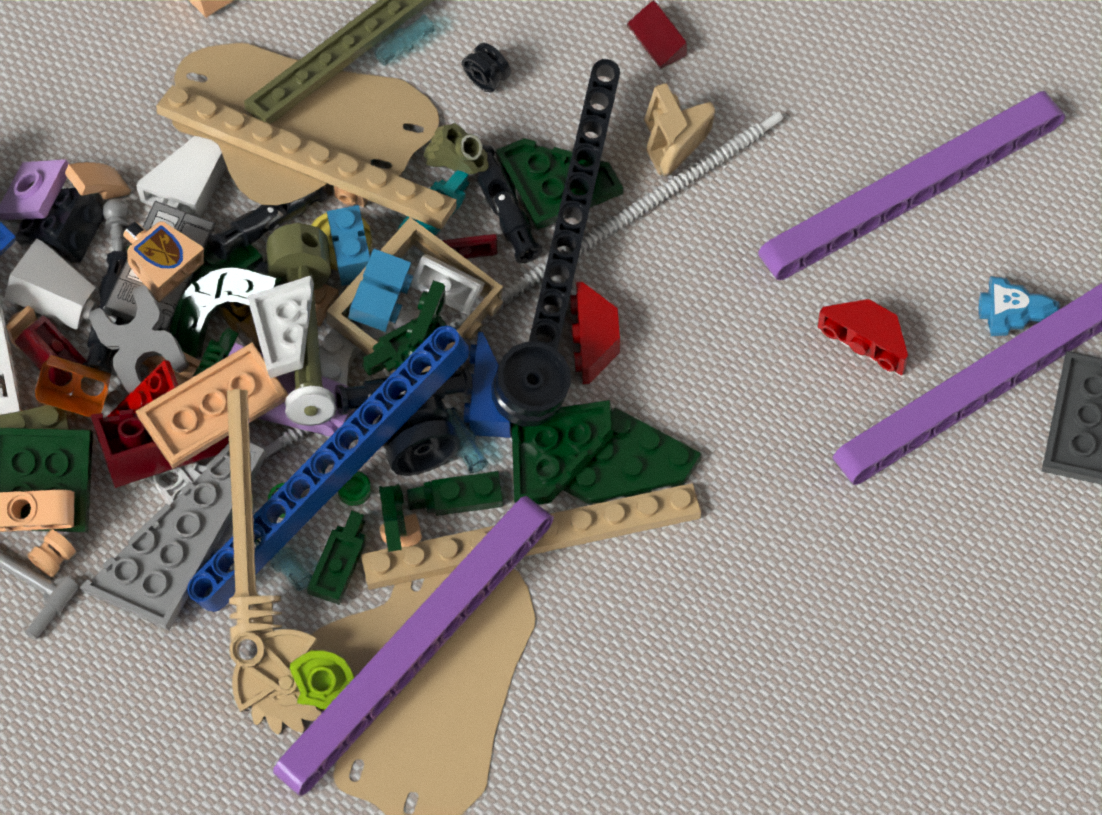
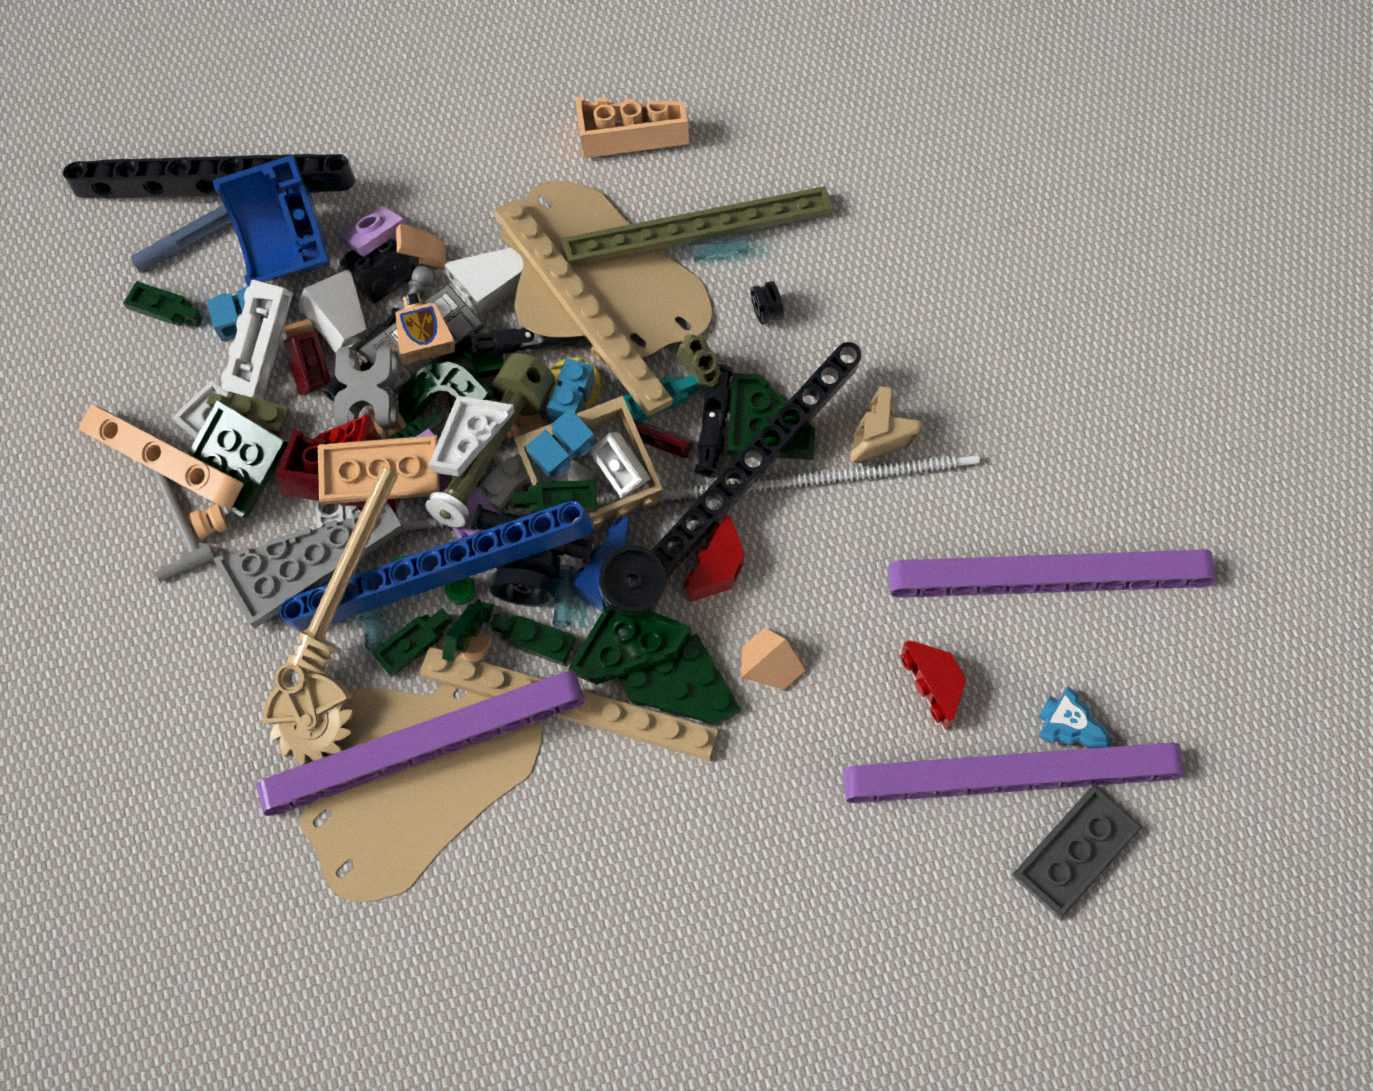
camera: 30 degrees right, 5 degrees up
(59, 396) = (288, 402): orange piece -> none
(320, 677) = (332, 730): lime animal -> none
(419, 330) = (586, 480): dark green hinge -> none
(658, 35) = (920, 343): dark red slope -> none
(702, 393) = (770, 660): none -> light nougat slope

